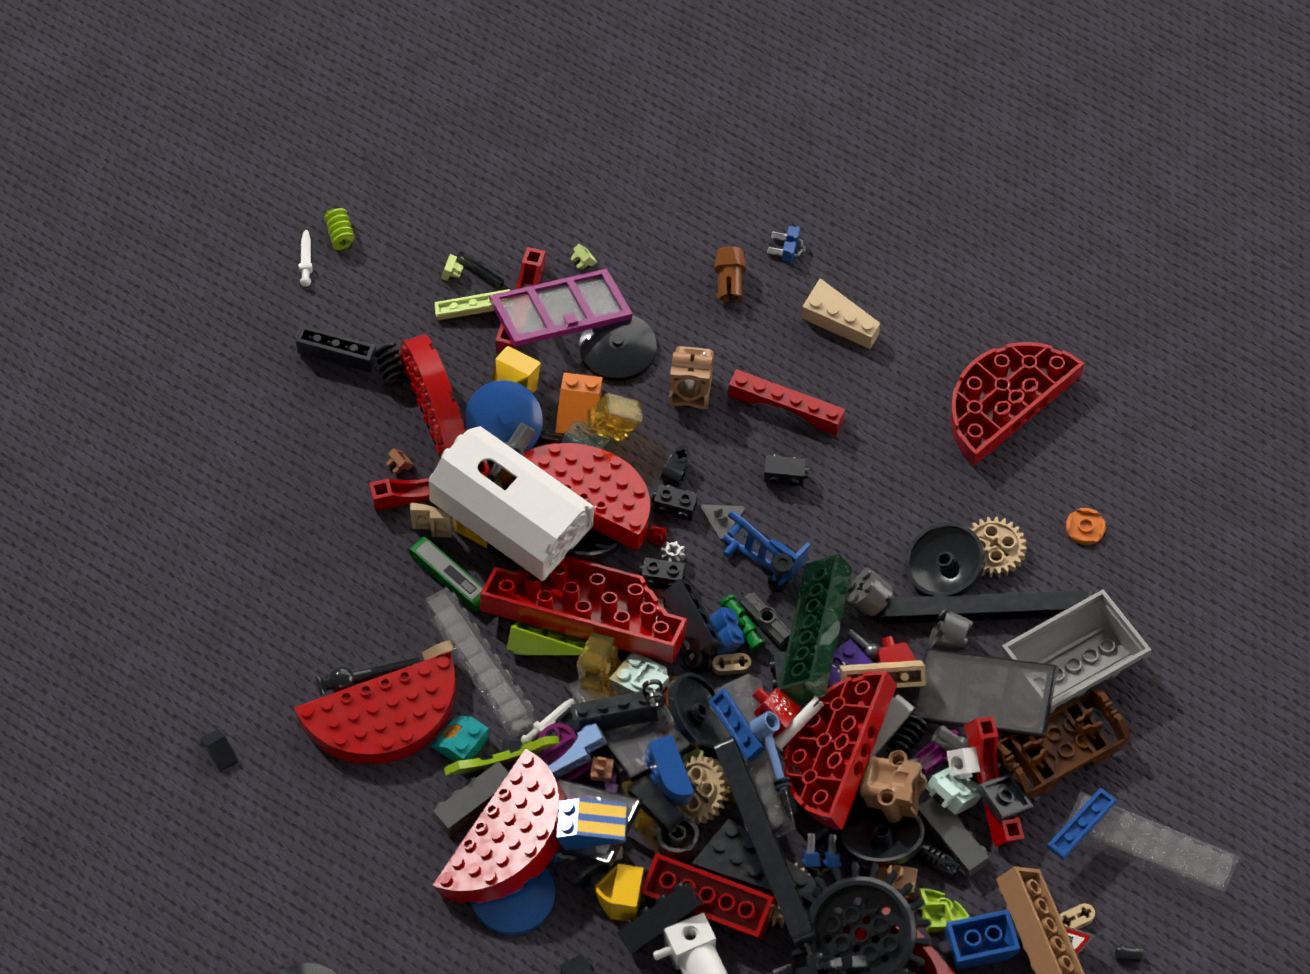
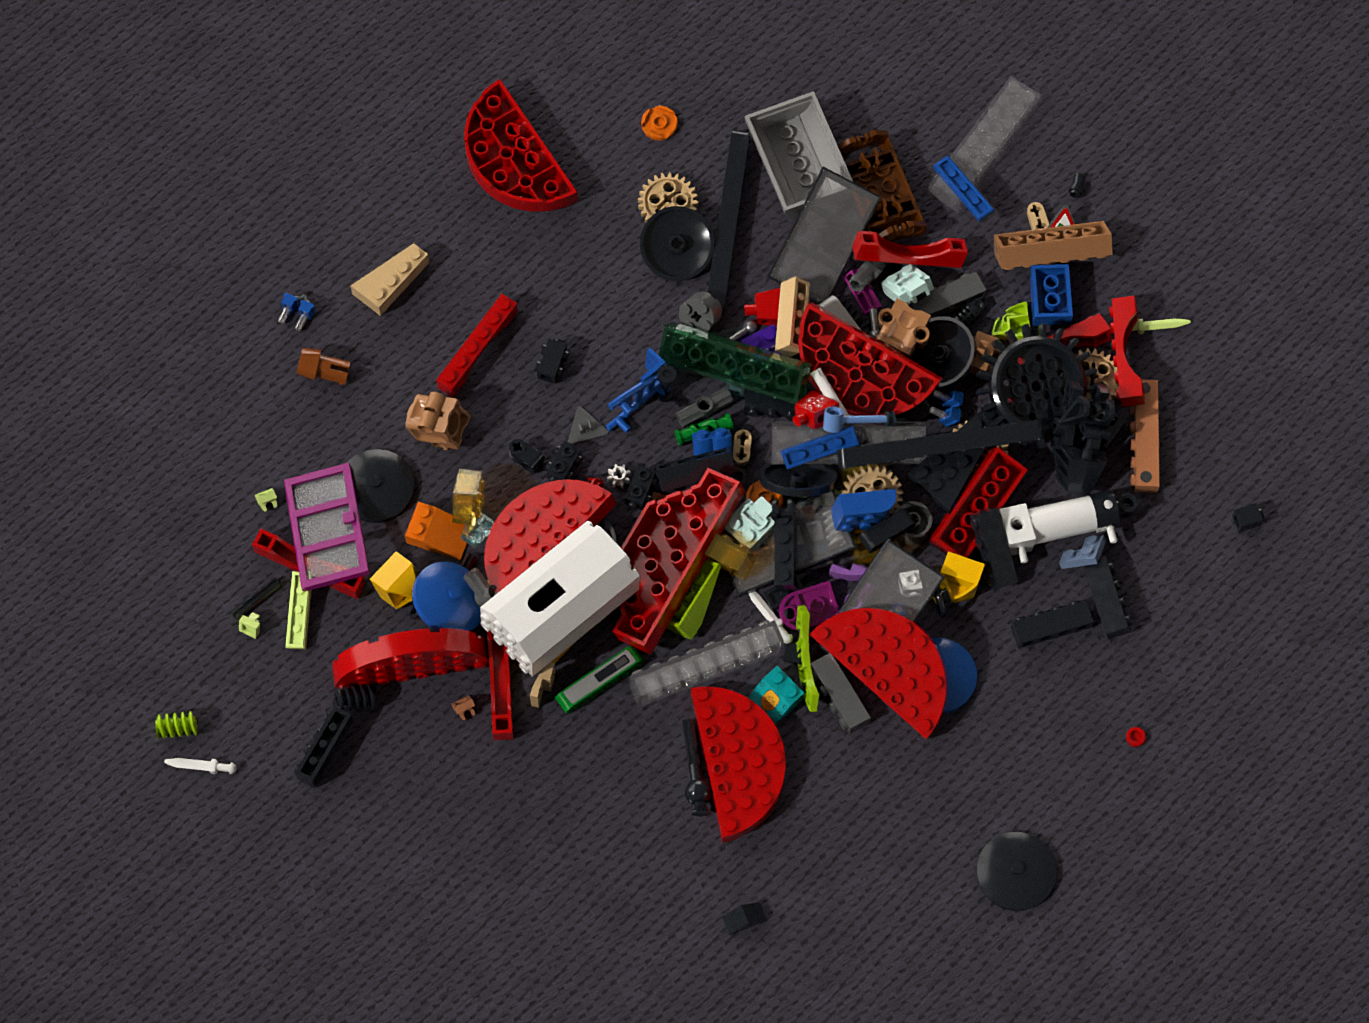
camera: 80 degrees left, 10 degrees up
(437, 650) = (685, 700): tan beam -> none
(589, 740) = (809, 576): light blue slope -> none
(591, 823) = (903, 583): slope -> none
(602, 769) = (837, 573): nougat tile -> none
(950, 632) = (753, 255): dark grey brick -> none
(963, 762) = (885, 263): white brick -> none
(1004, 797) = (927, 244): black tile -> none

